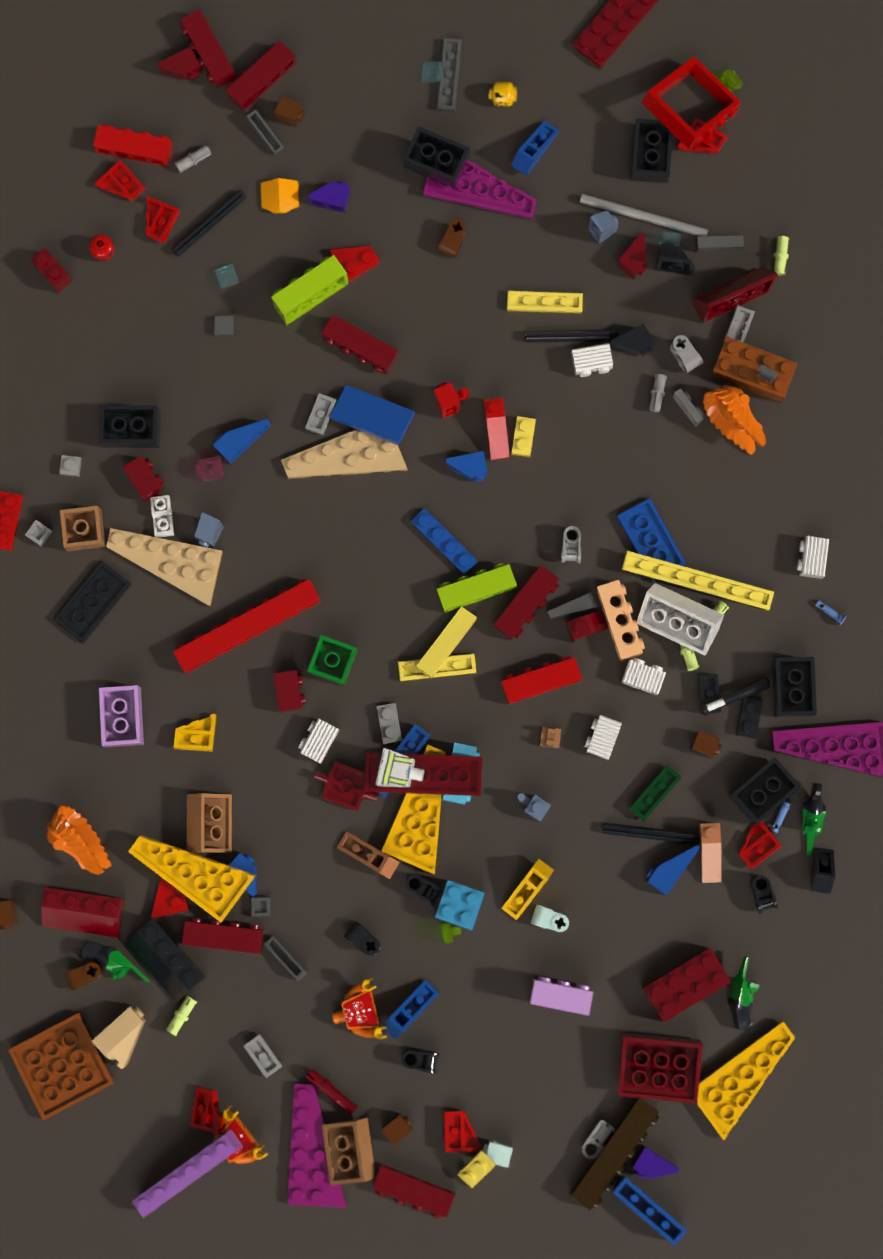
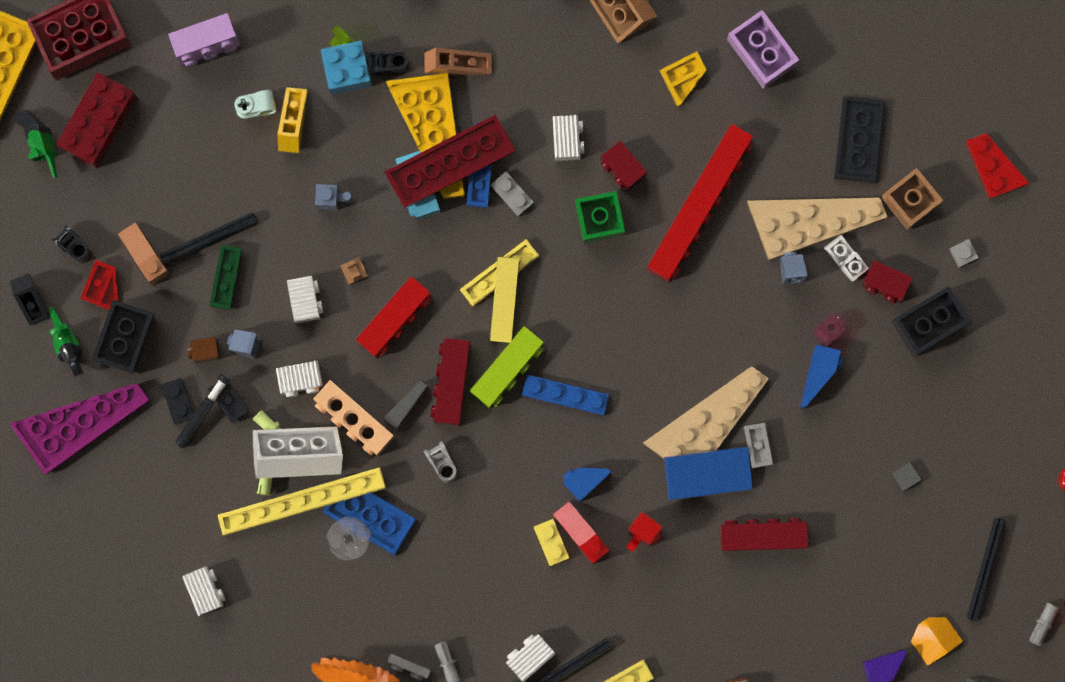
camera: 150 degrees right, 0 degrees up
(38, 533) = (951, 171): light grey plate -> none
(159, 219) = (1035, 543): red wing -> none
(226, 276) = (935, 527): clear light blue tile -> none
(309, 289) = (844, 558): lime brick -> none
(345, 786) = (517, 111): dark red plate -> none
(356, 260) = (821, 618): red wing -> none
(397, 770) = (475, 148): white torso -> none
(586, 626) = (381, 394): dark red slope -> none
(667, 873) = (171, 211): blue slope -> none
(671, 537) = (359, 533): none -> clear plate
(672, 730) = (244, 343): none -> sand blue slope
(781, 815) = (96, 326): medium blue piece -> none
(794, 687) = (151, 452): black brick -> none
(832, 613) = (154, 548): medium blue piece -> none

